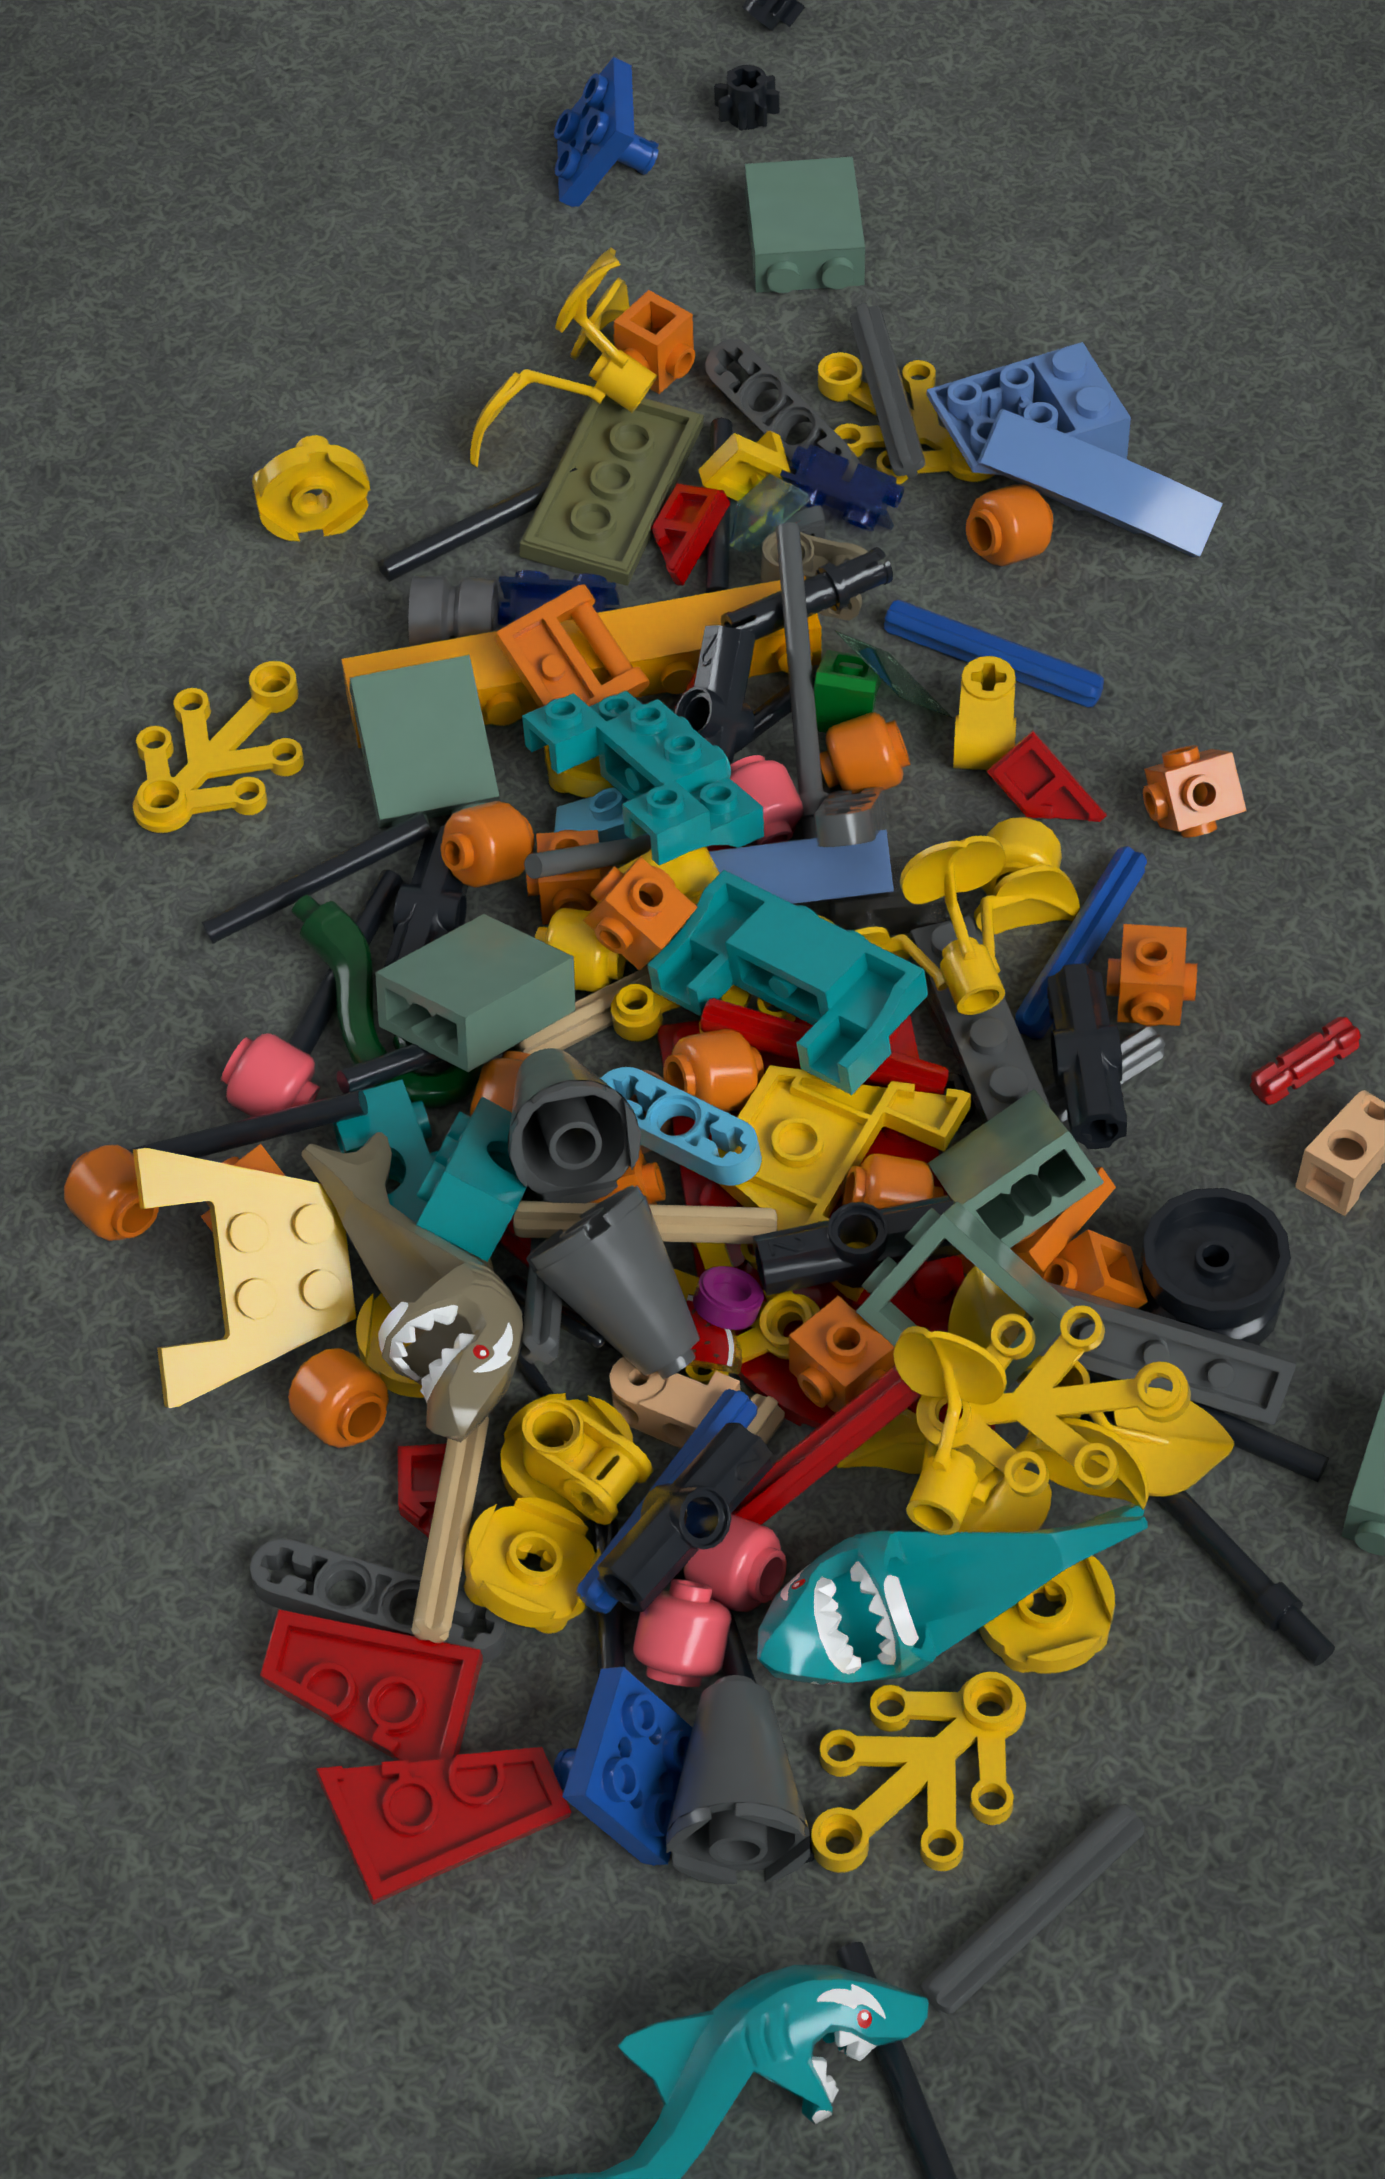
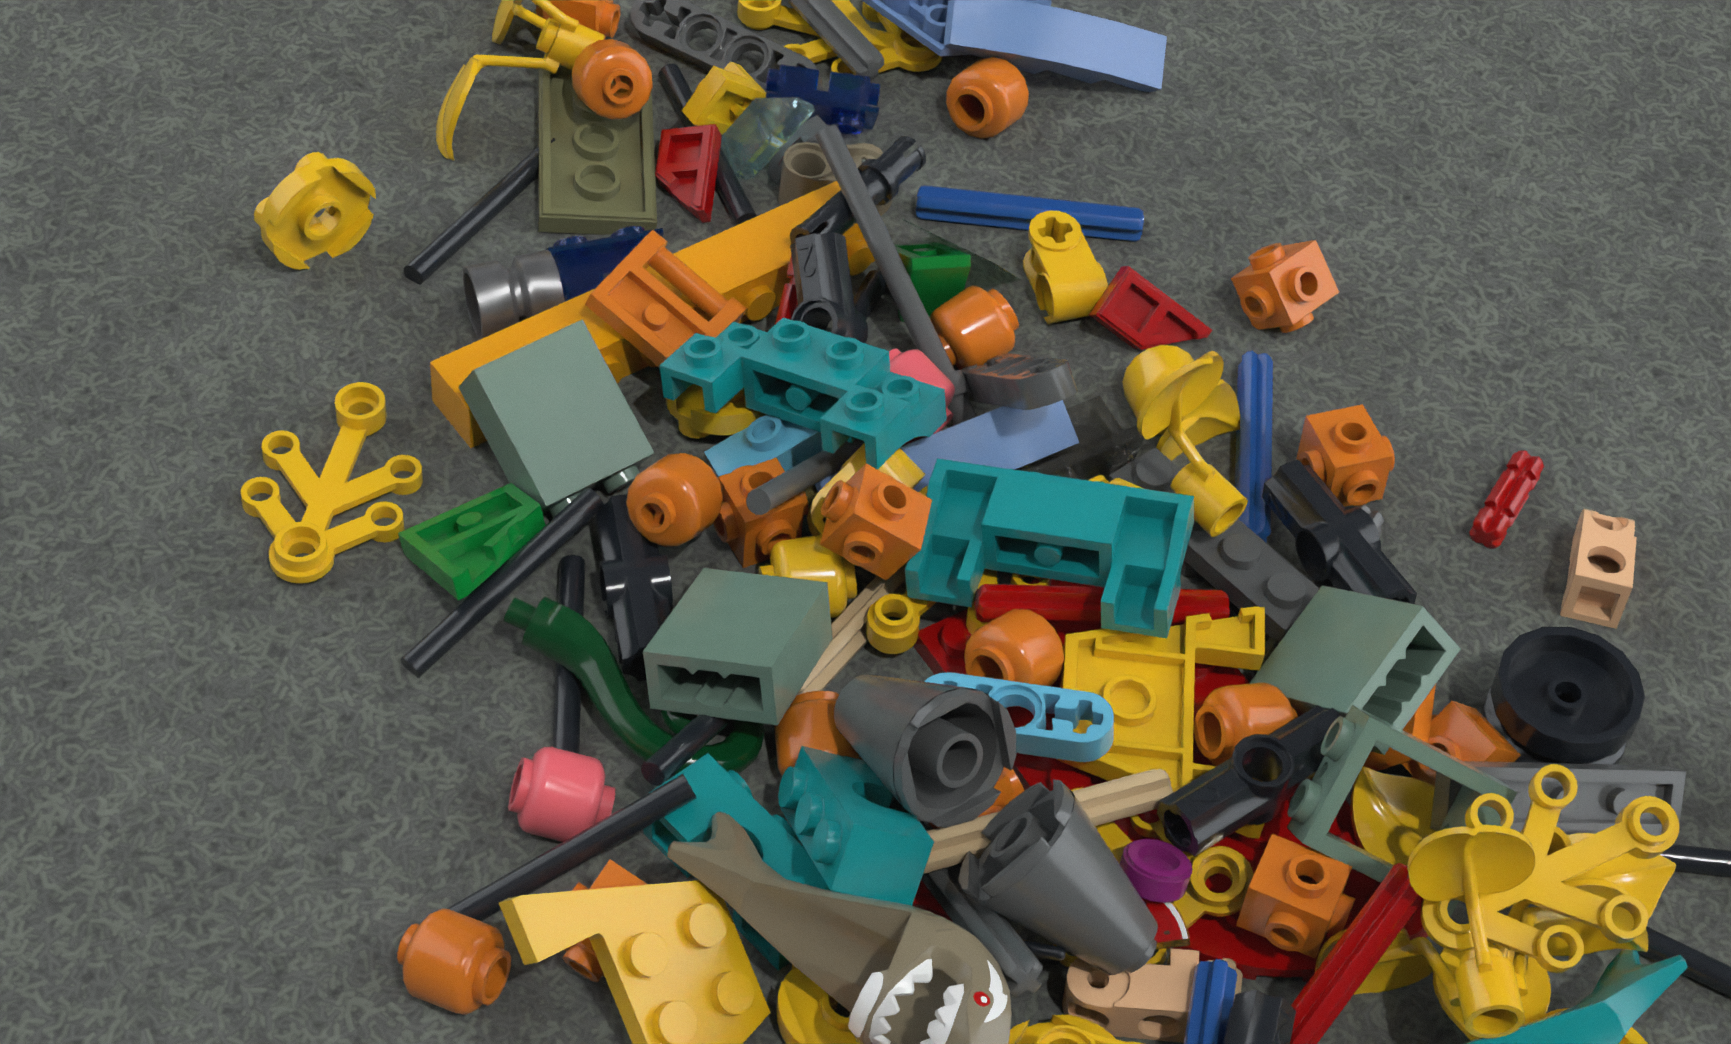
camera: 30 degrees left, 5 degrees down
(309, 831) = (473, 539): none -> green wing
(645, 406) = (609, 62): none -> orange head

